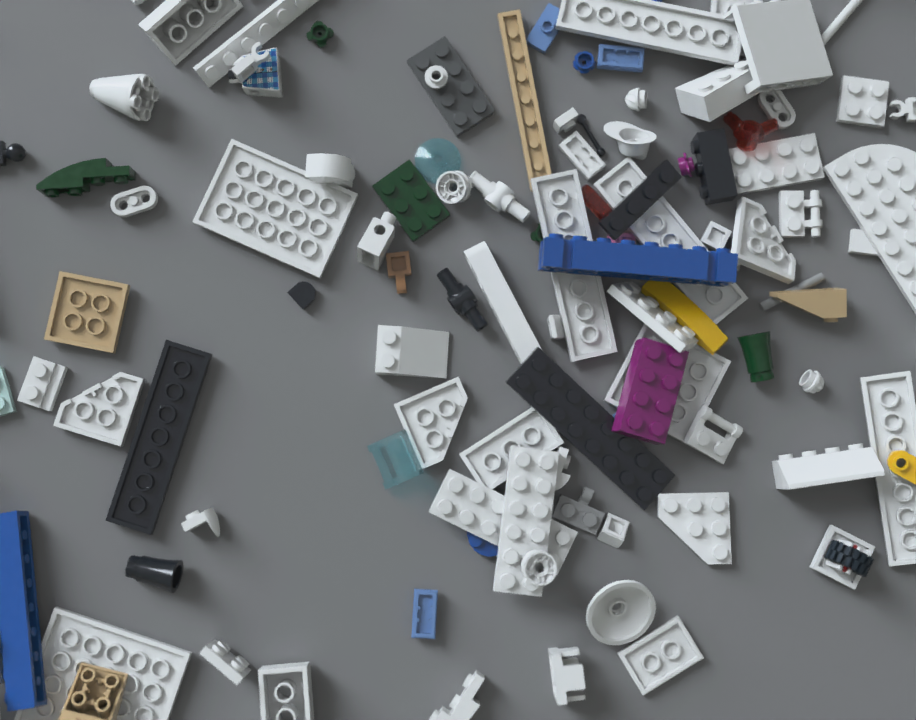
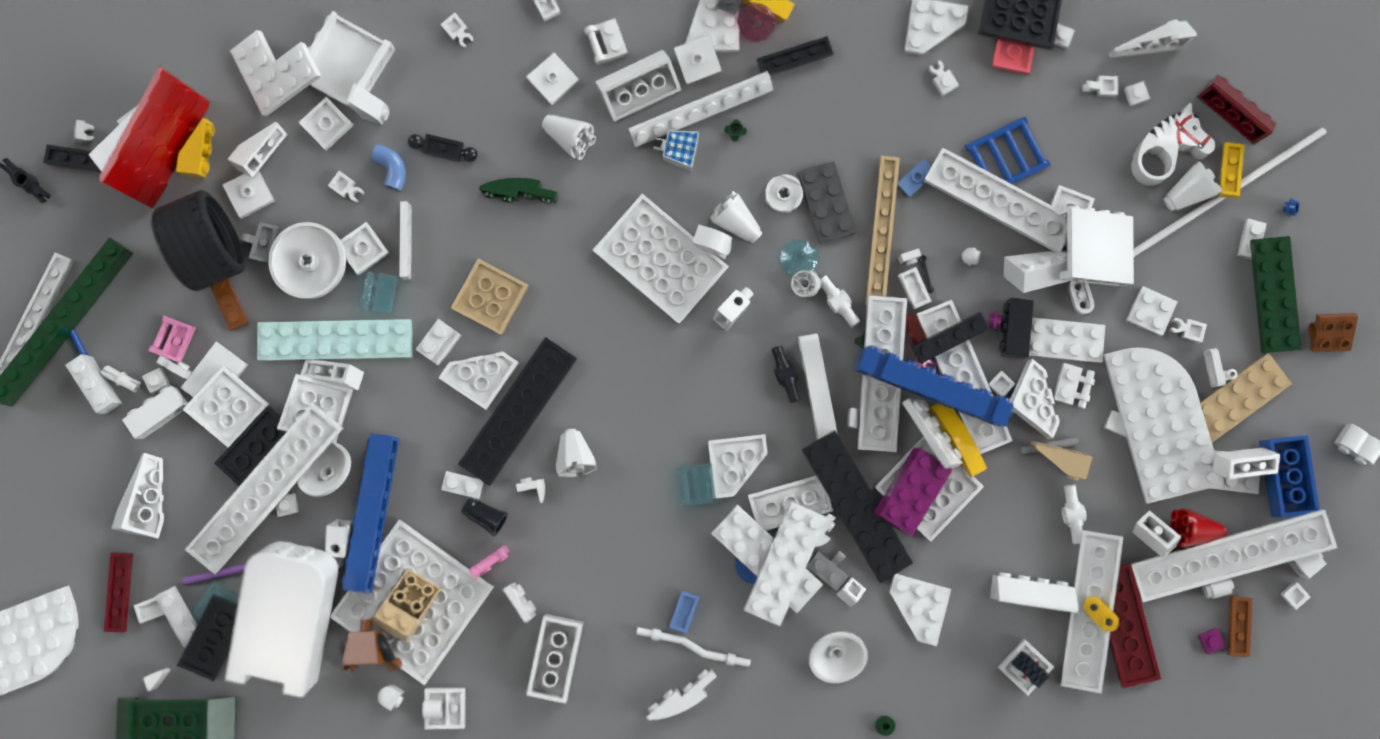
camera: 15 degrees right, 0 degrees up
(88, 36) = (552, 78): none -> white plate
(119, 543) = (462, 485): none -> white plate
(134, 198) = (551, 218): white plate -> none
(171, 632) = (484, 566): none -> bright pink plate
(240, 469) = (574, 455): none -> white cone
(249, 64) = (670, 141): white plate -> none
(303, 294) = (662, 332): black tile -> none
(350, 135) = (736, 218): none -> white cone
(390, 80) = (774, 198): none -> white plate
(398, 267) = (743, 333): medium nougat plate -> none
(400, 650) = (729, 658): none -> white bar
(411, 200) = (768, 284): dark green plate -> none
(411, 352) = (734, 404): white slope -> none
(439, 83) = (817, 198): white plate -> none
(548, 563) = (793, 601): white wheel -> none
(566, 675) = (781, 693): white panel -> none
(588, 58) = (938, 209): blue plate -> none
(620, 58) = (968, 219): medium blue plate -> none
(630, 139) = (957, 287): white piece -> none
(660, 655) = (859, 700): white tile -> none
(692, 672) = (885, 719): none -> dark green plate
(708, 441) = (947, 545): white plate -> none
(749, 132) = (1052, 309): clear red axle -> none
(758, 356) = (1006, 488): dark green plant -> none
(811, 381) = (1043, 522): white plate -> none
(843, 361) = (1073, 513): none -> white pin

